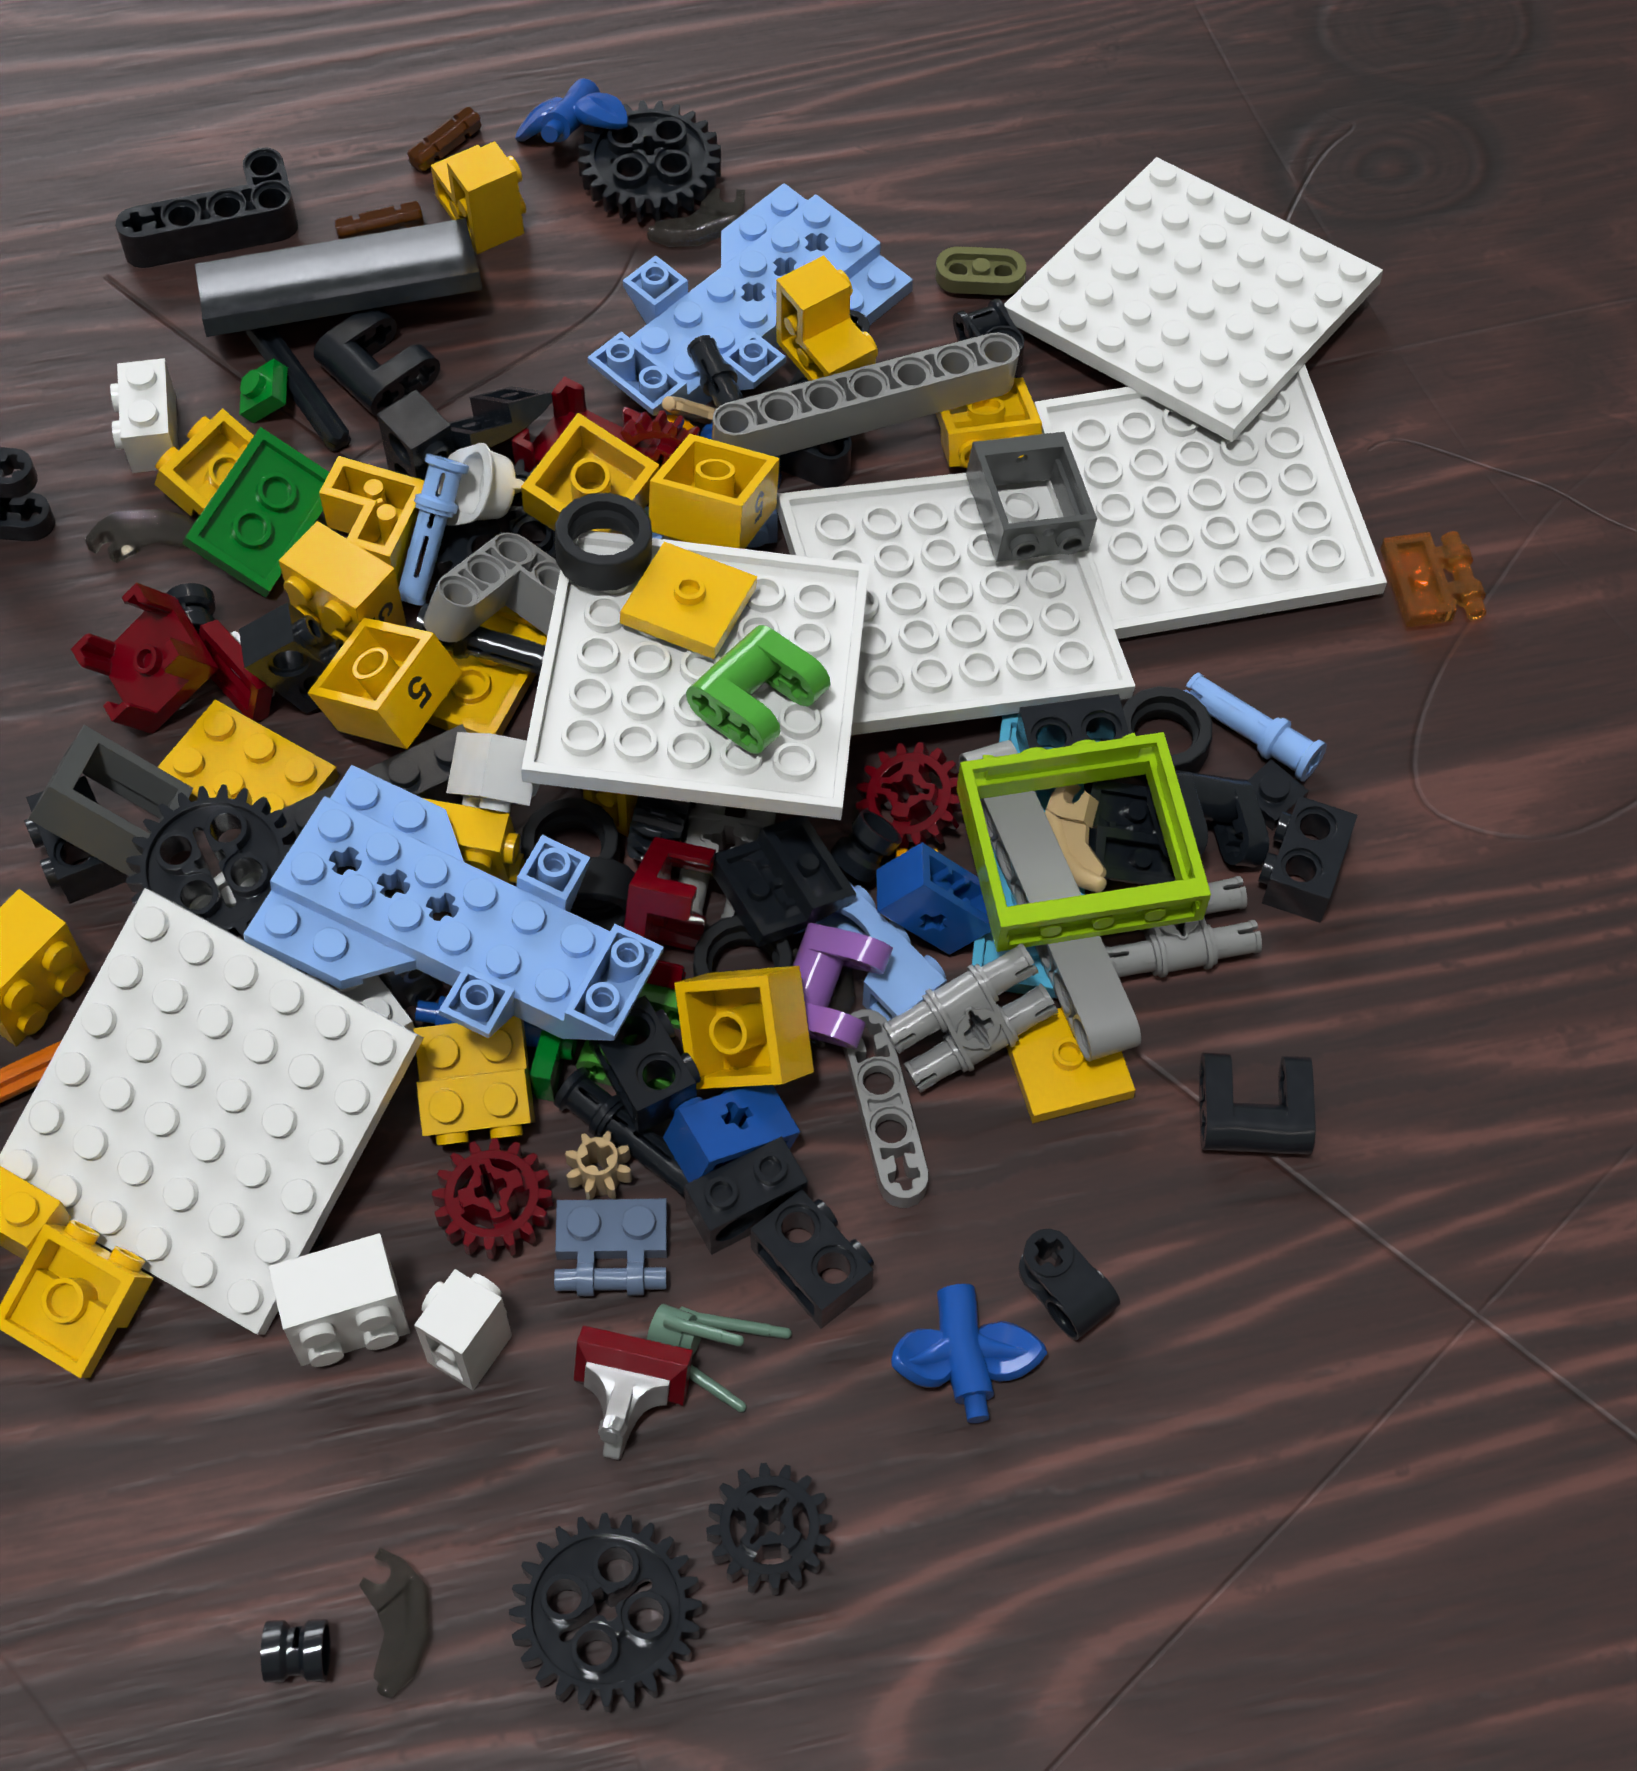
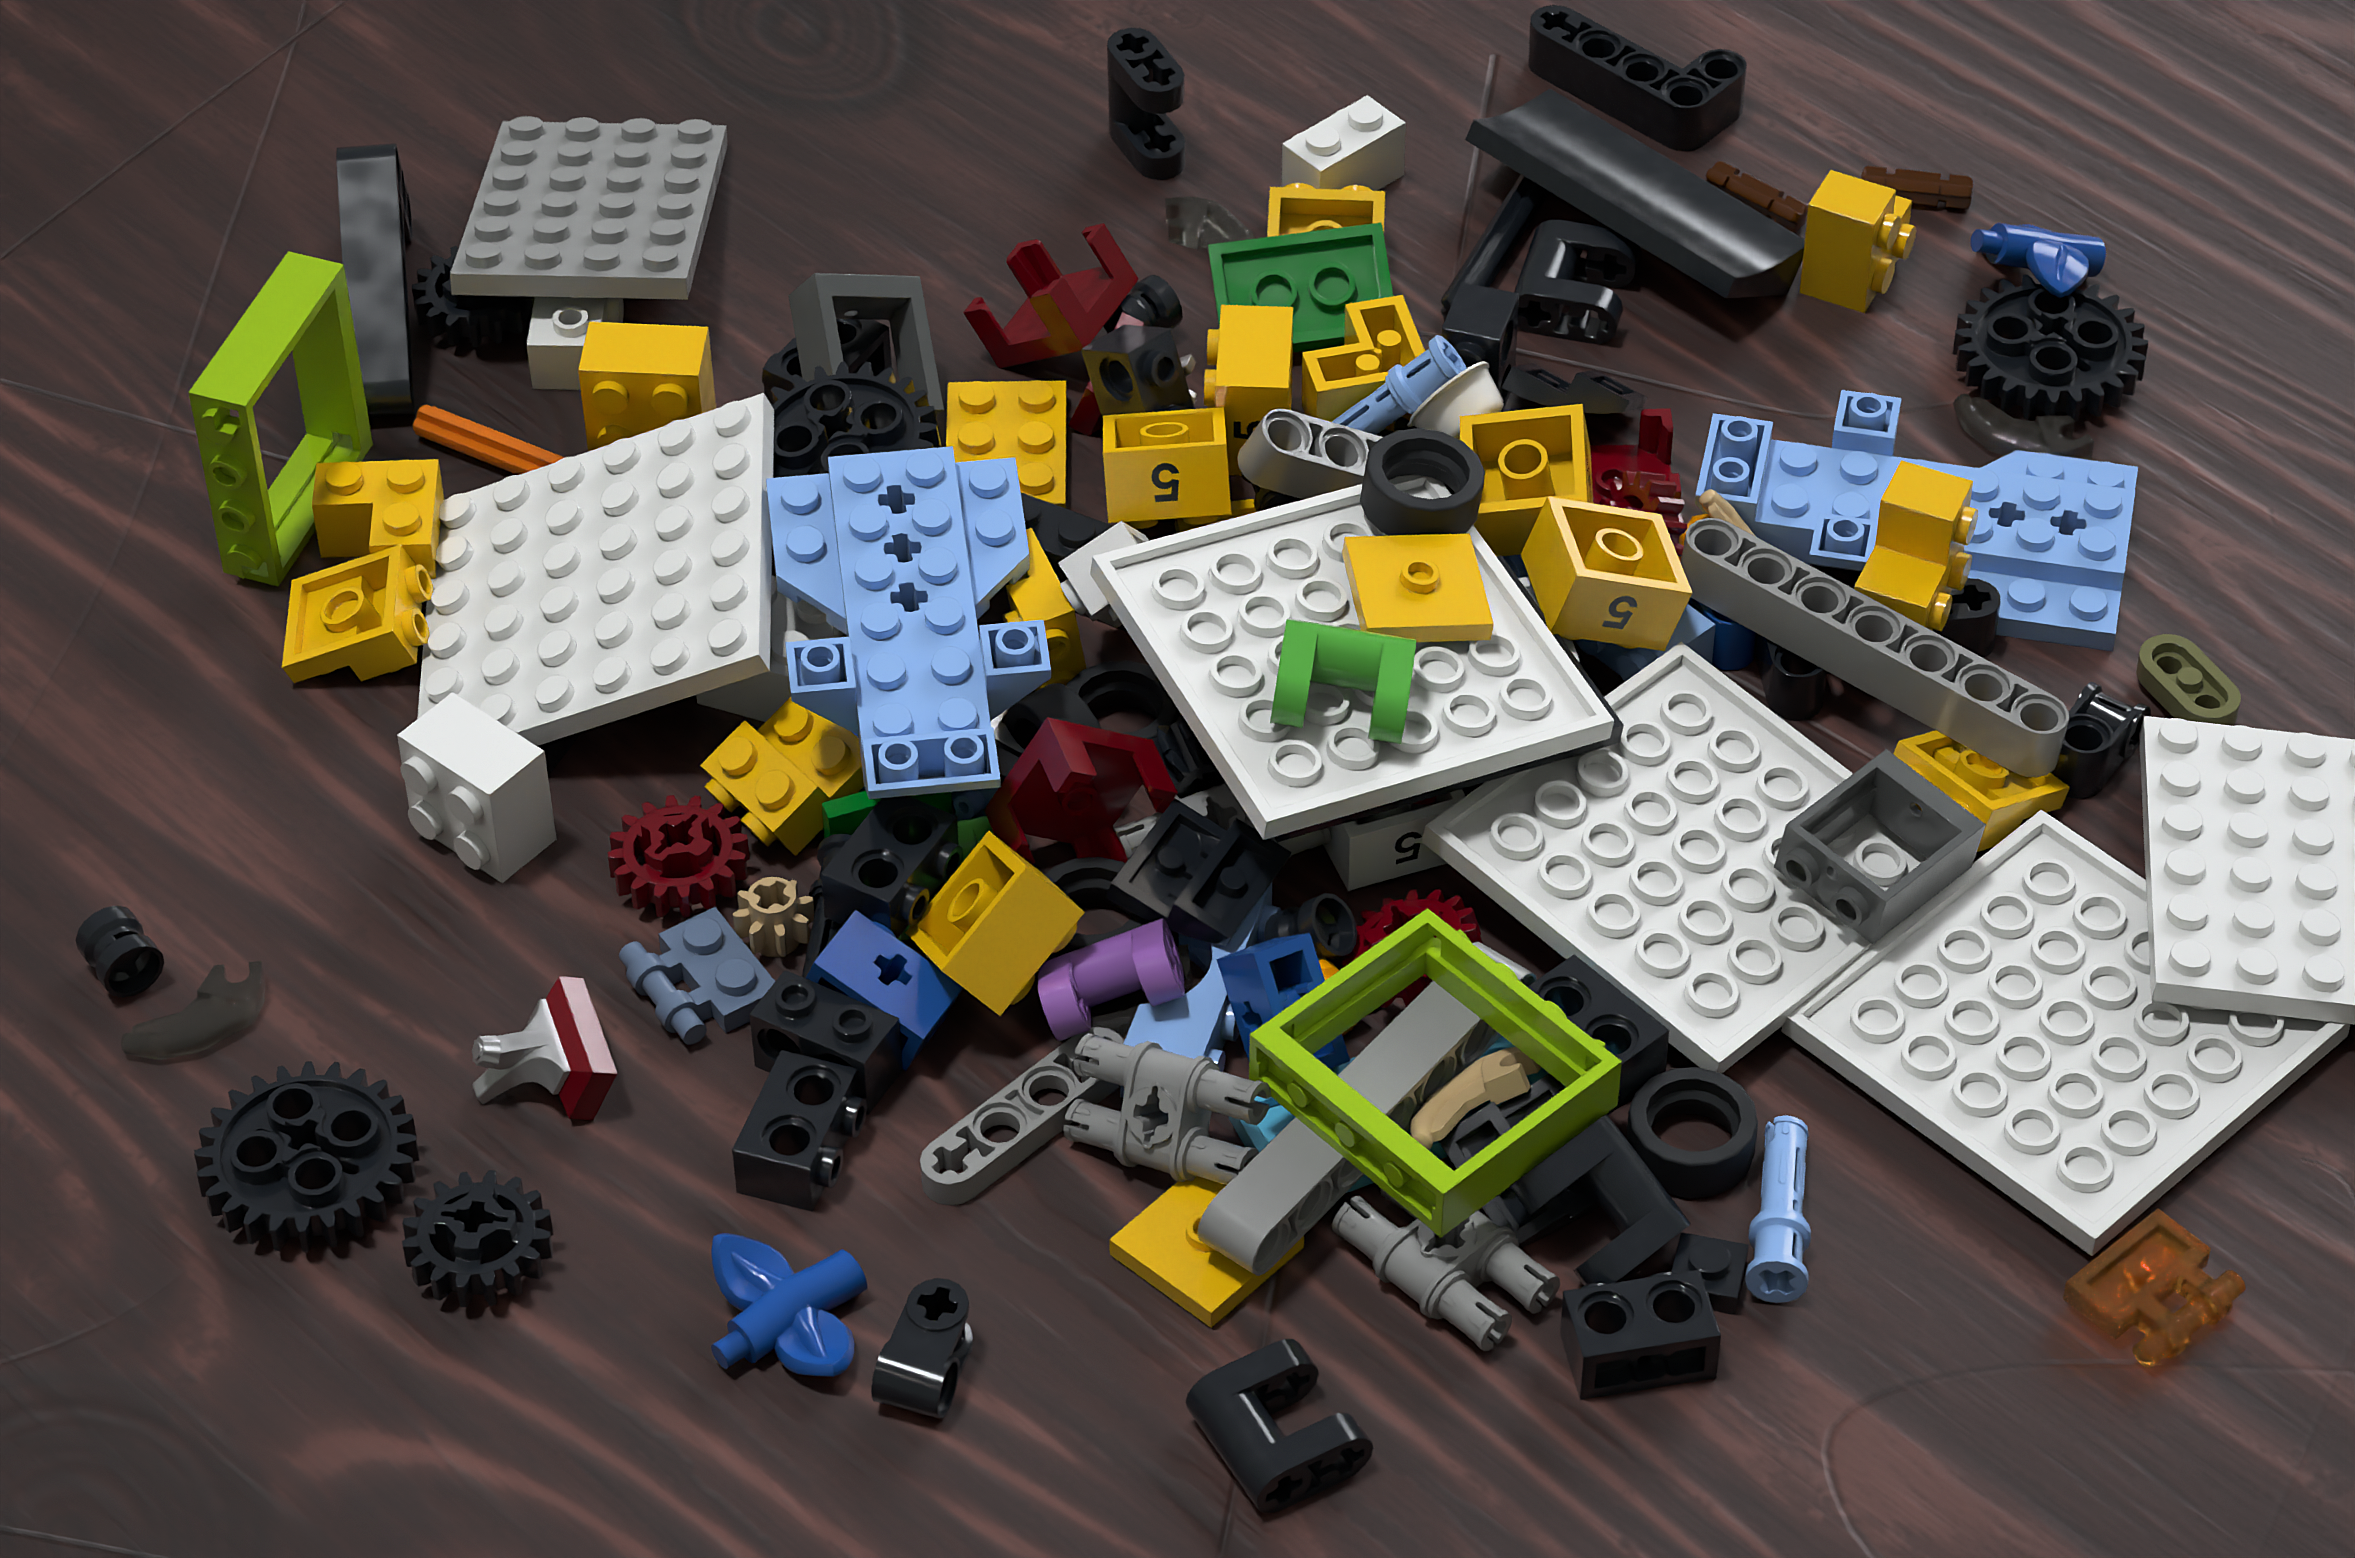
camera: 60 degrees right, 15 degrees down
(263, 390) = (1455, 220): green plate -> none
(463, 1327) = (512, 890): white brick -> none
(687, 1327) = (640, 1075): sand green plant -> none
(716, 376) = (1785, 517): black pin -> none

